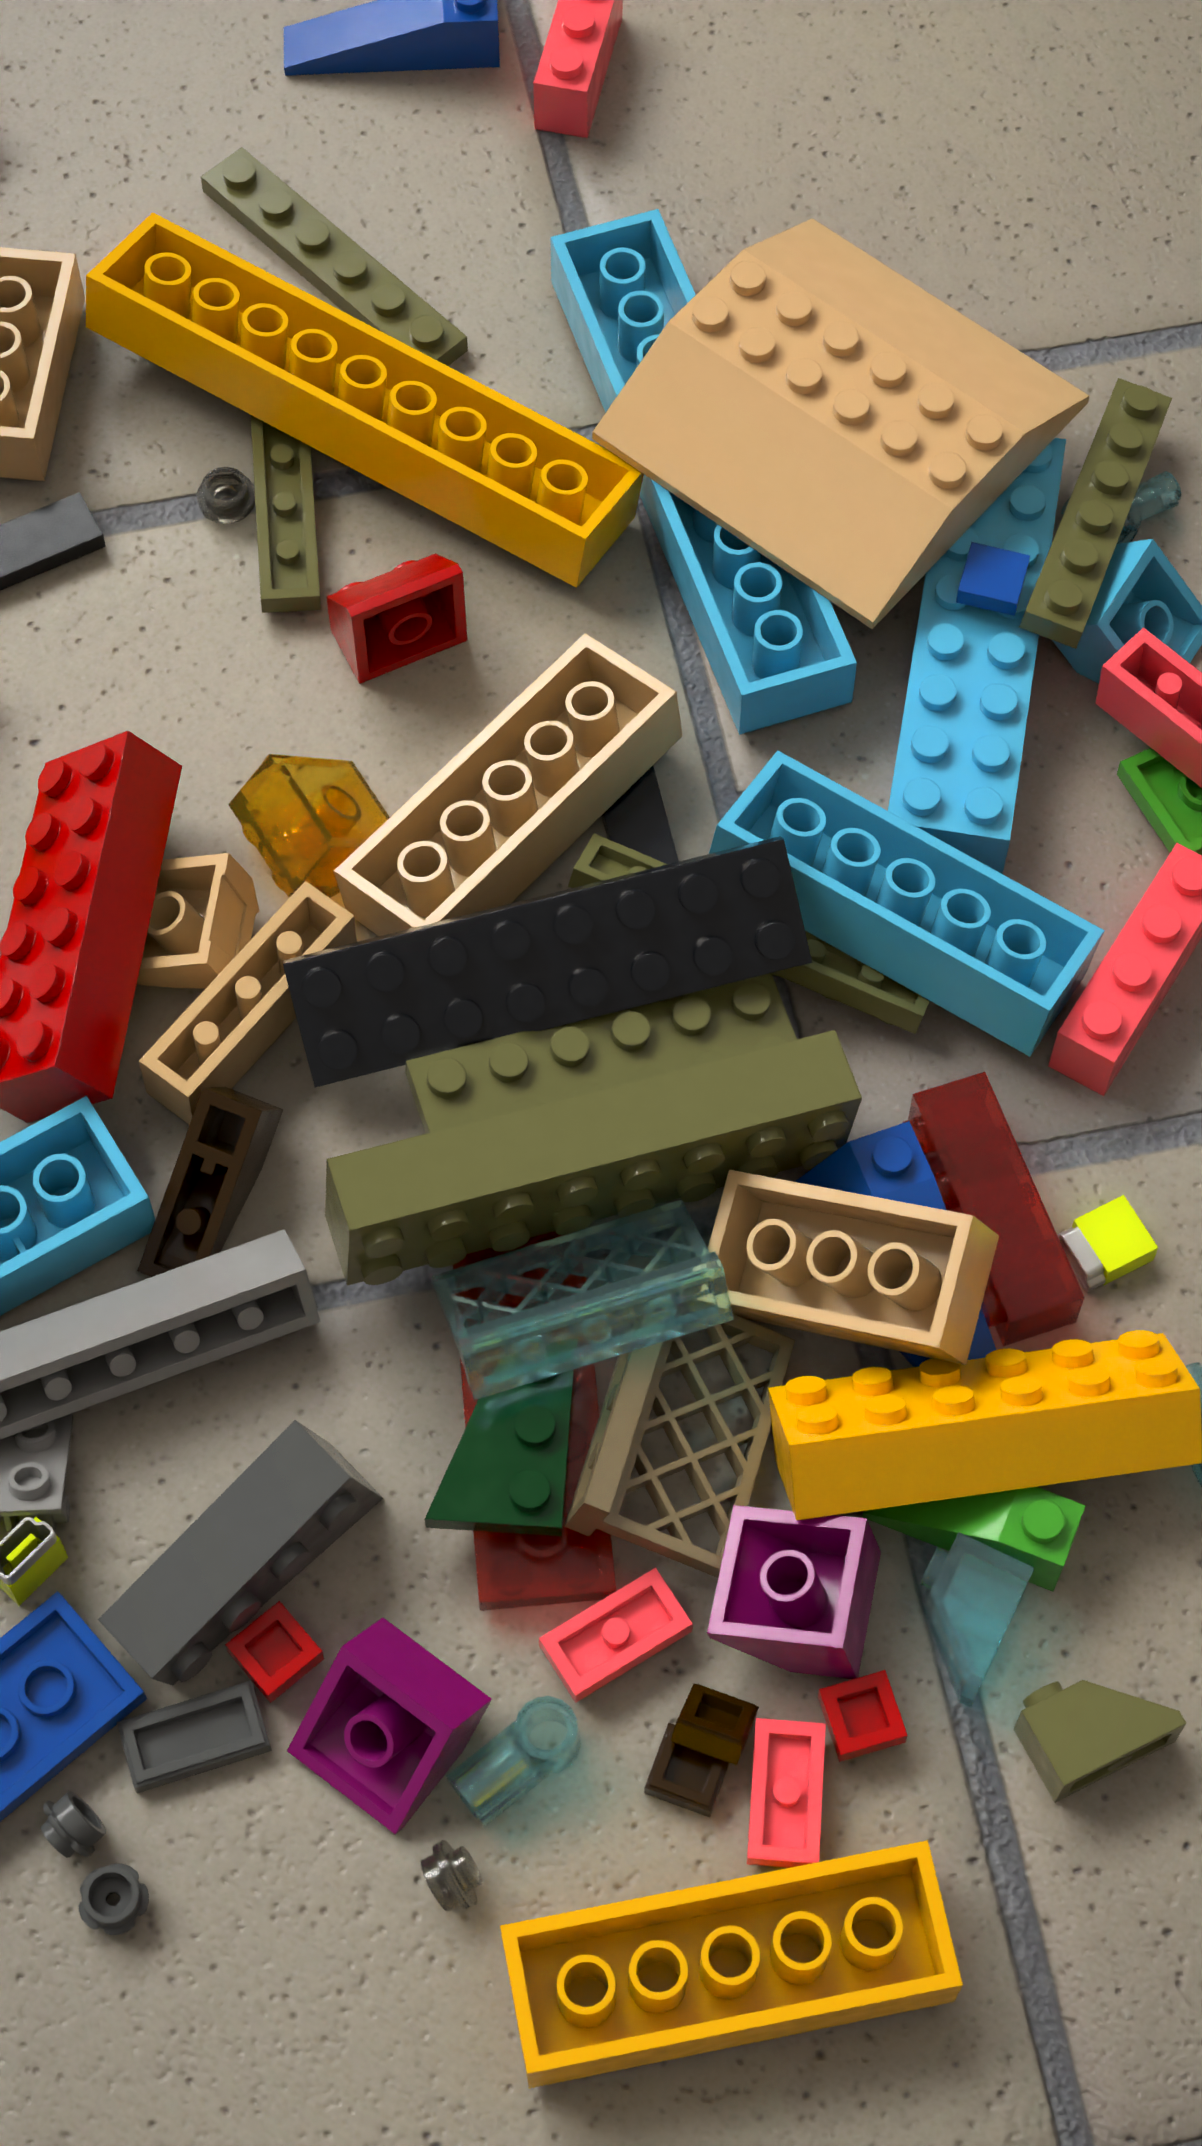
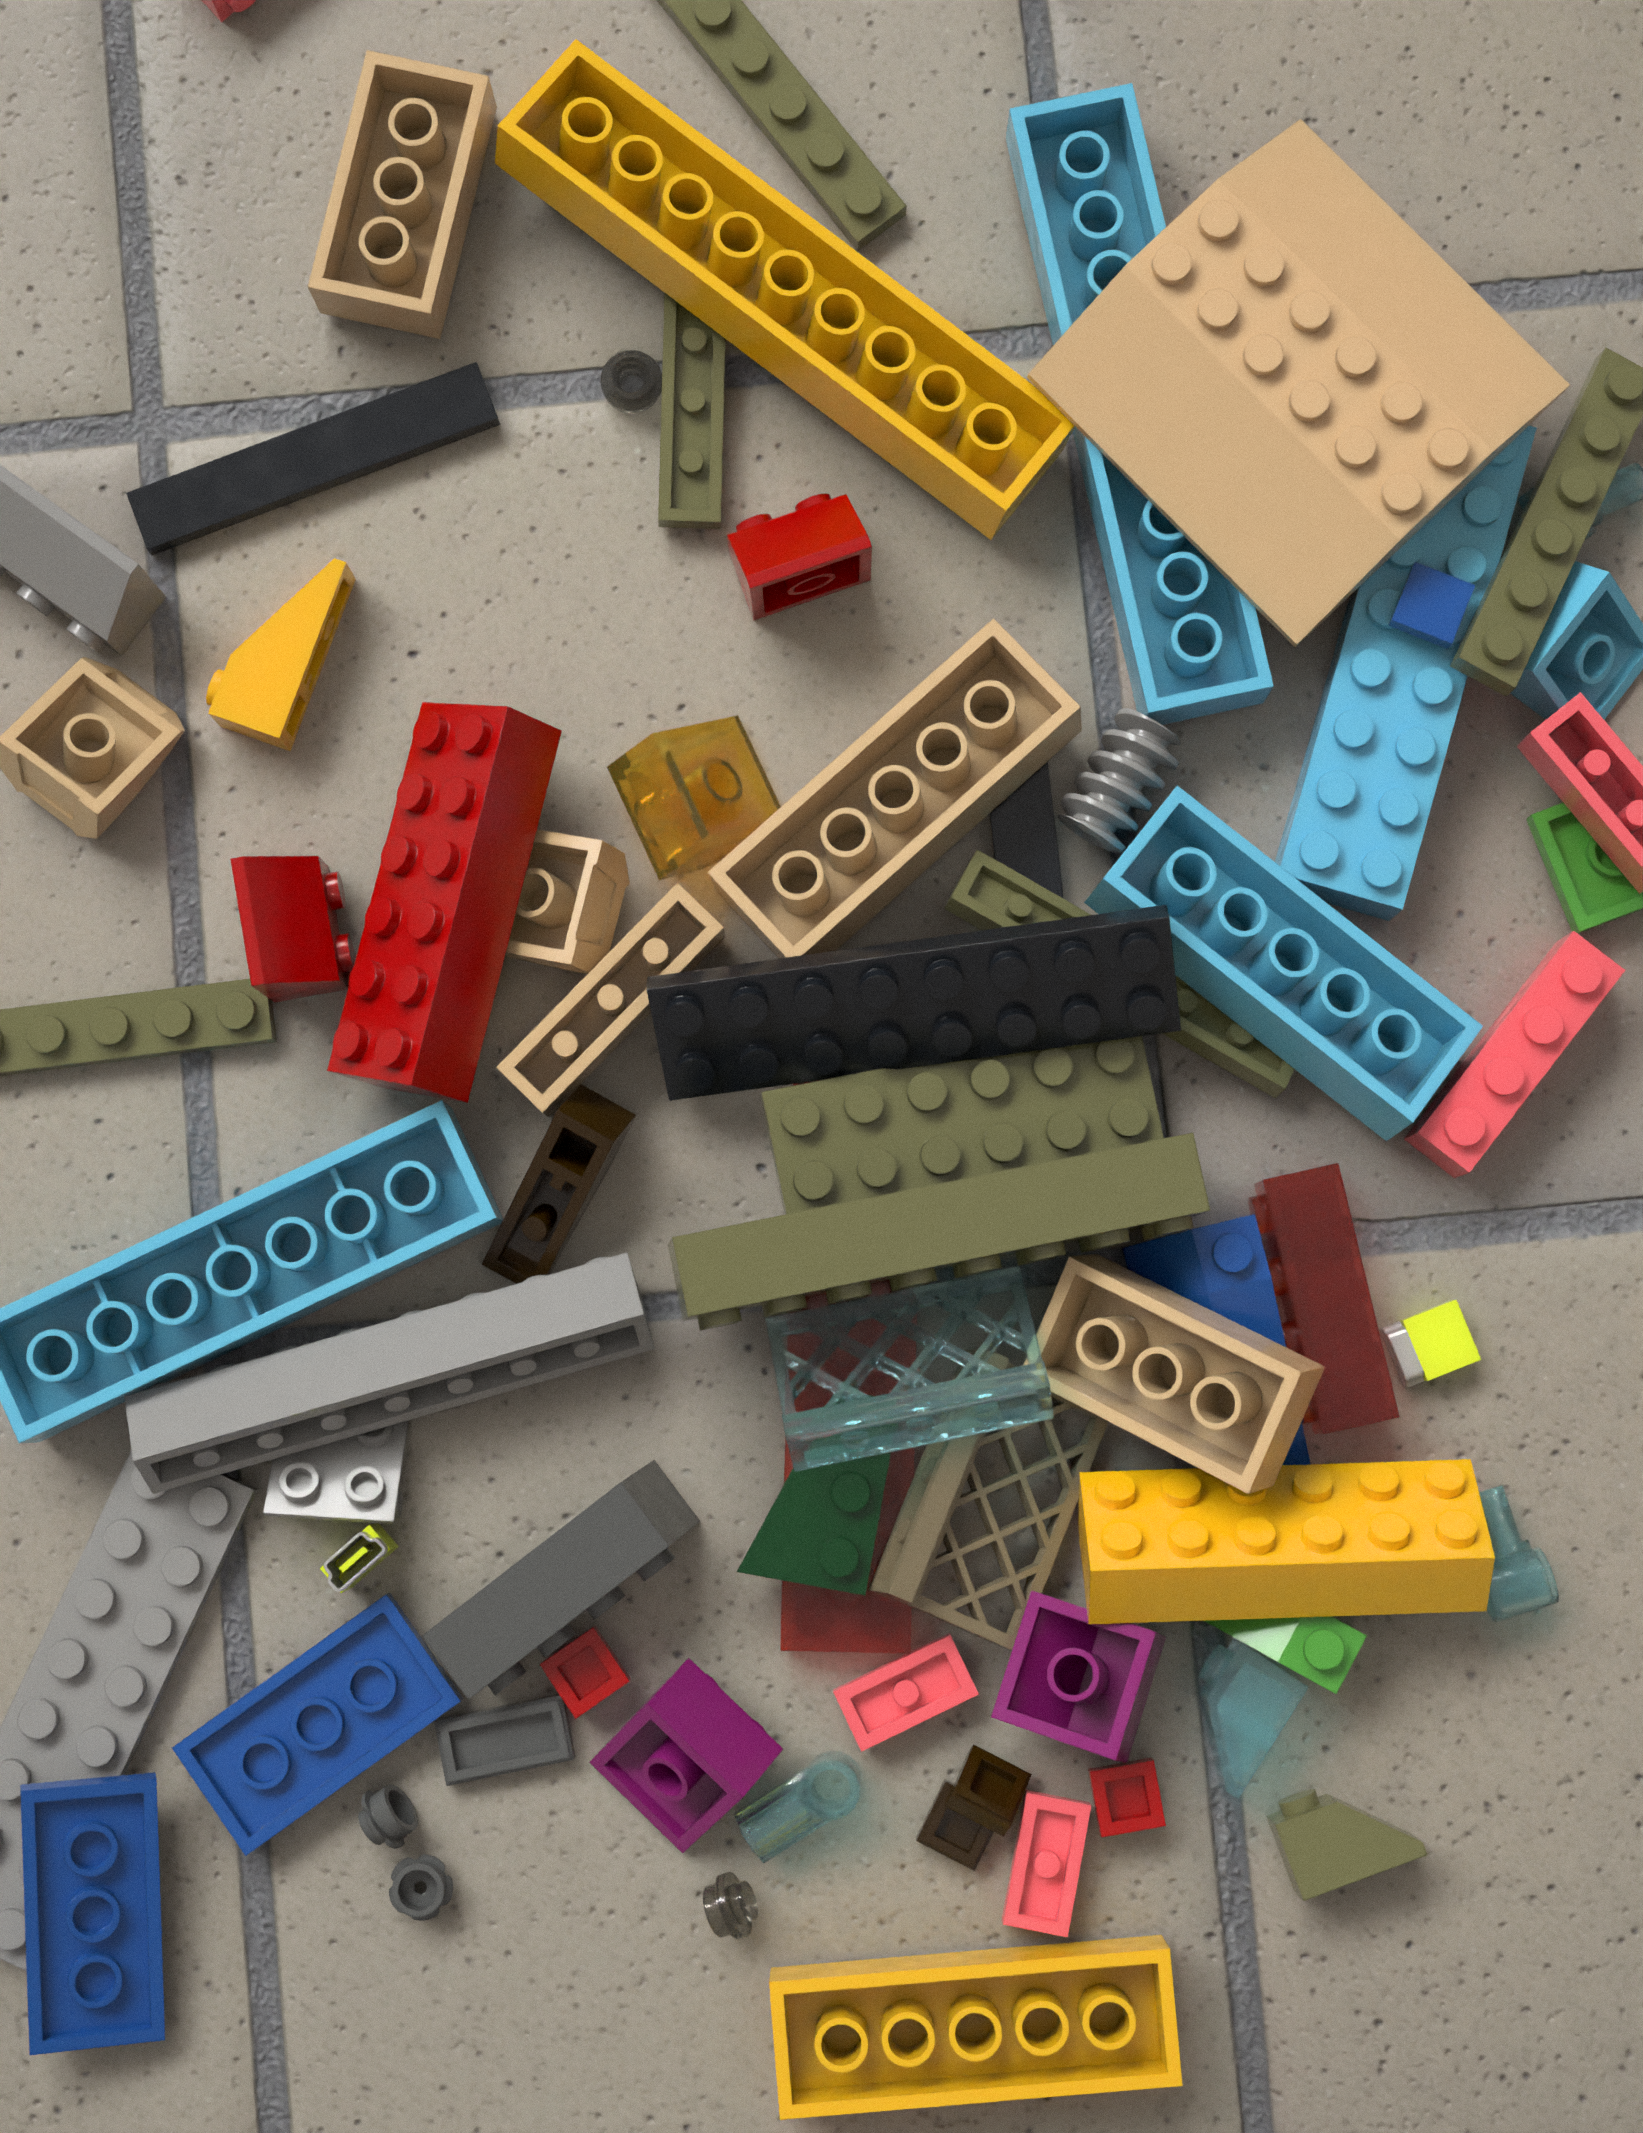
camera: 10 degrees right, 20 degrees up
(723, 764) = (1118, 779): none -> light grey piece

